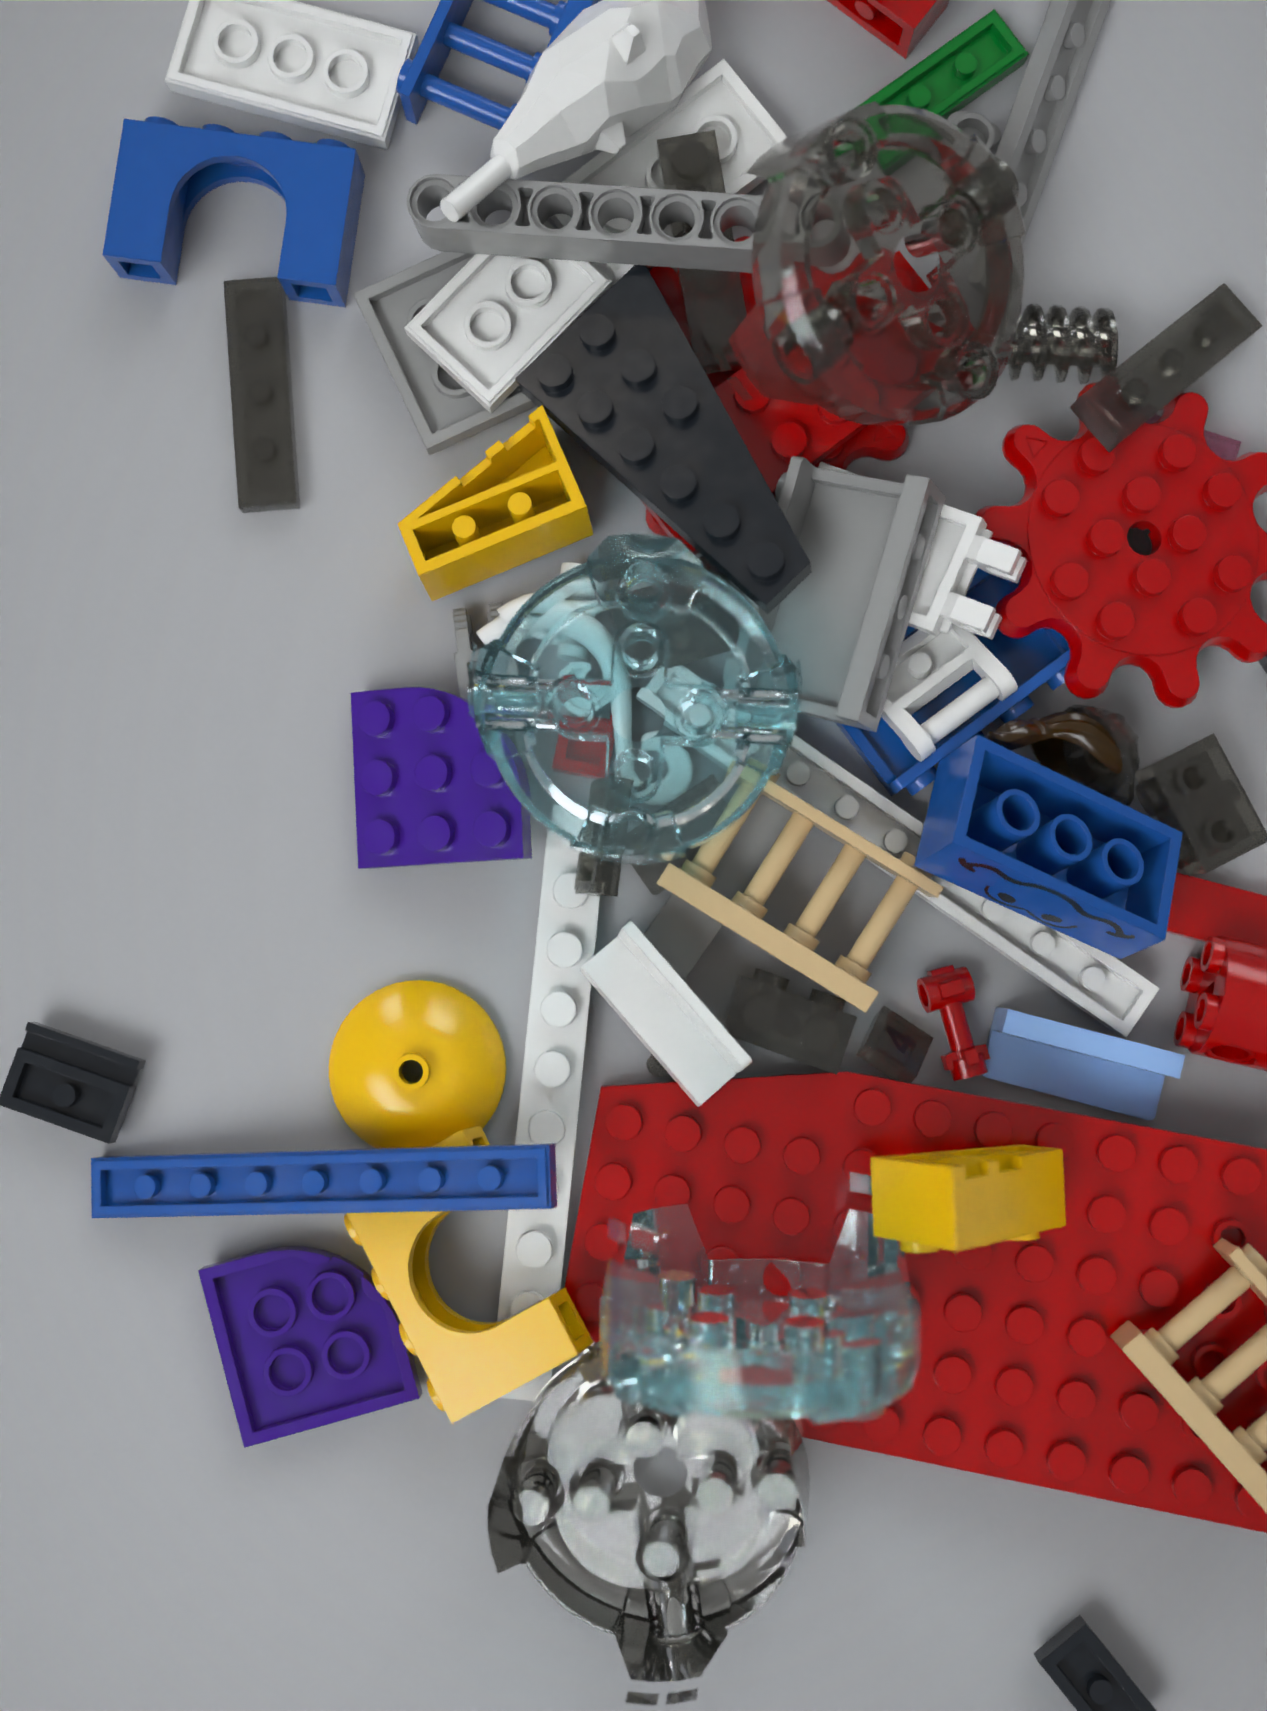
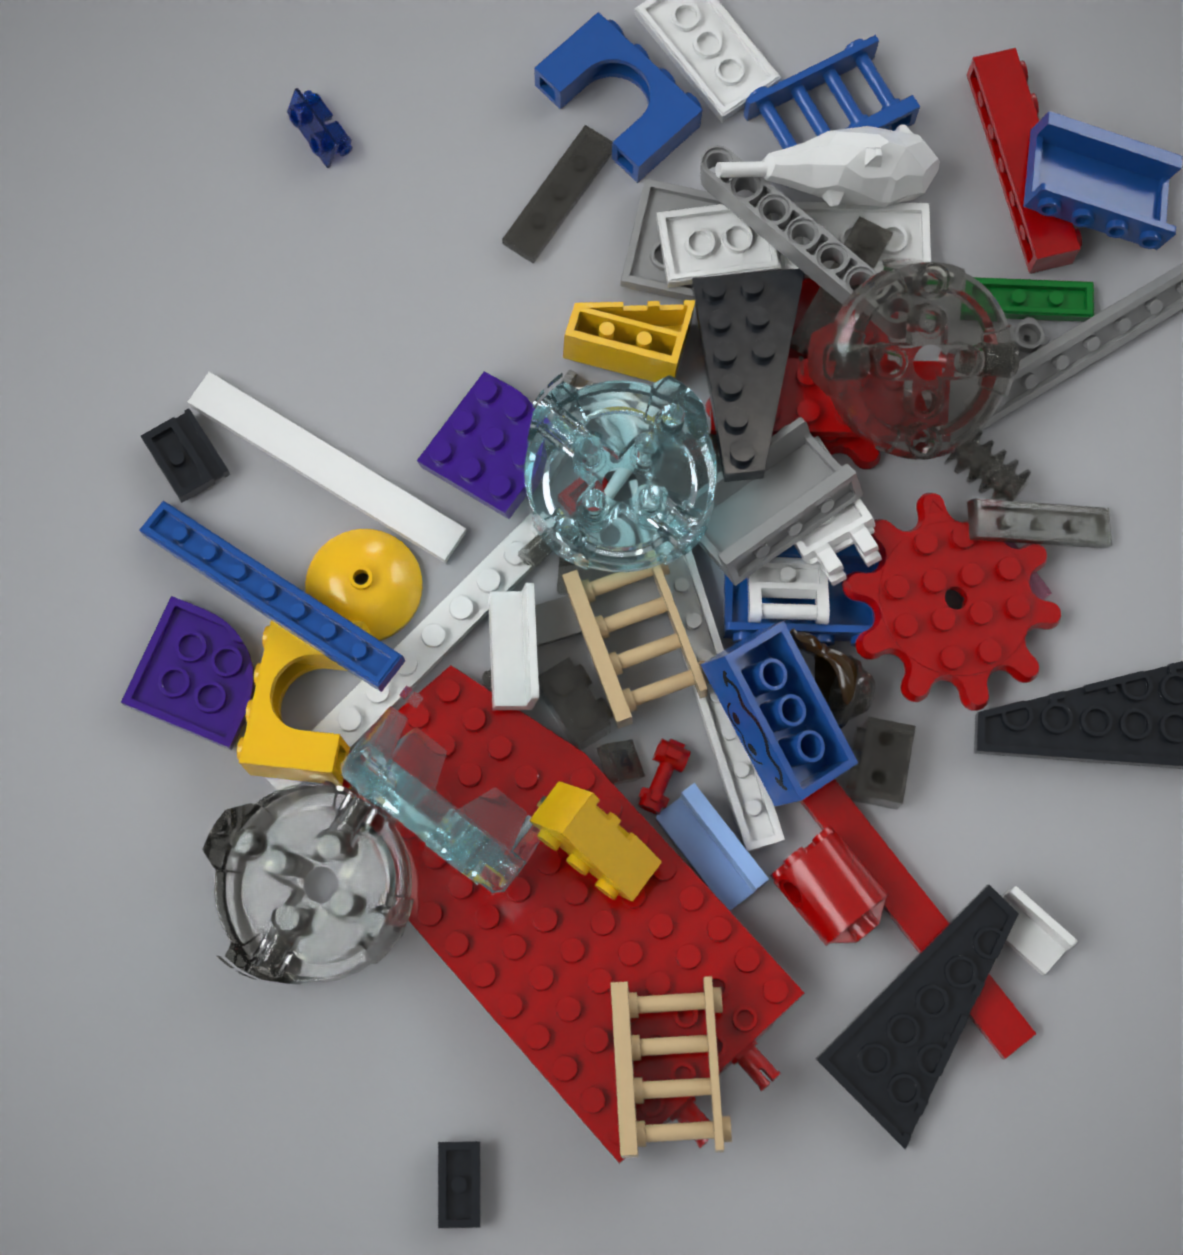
camera: 30 degrees right, 10 degrees down
(253, 959) = (327, 467): none -> white tile

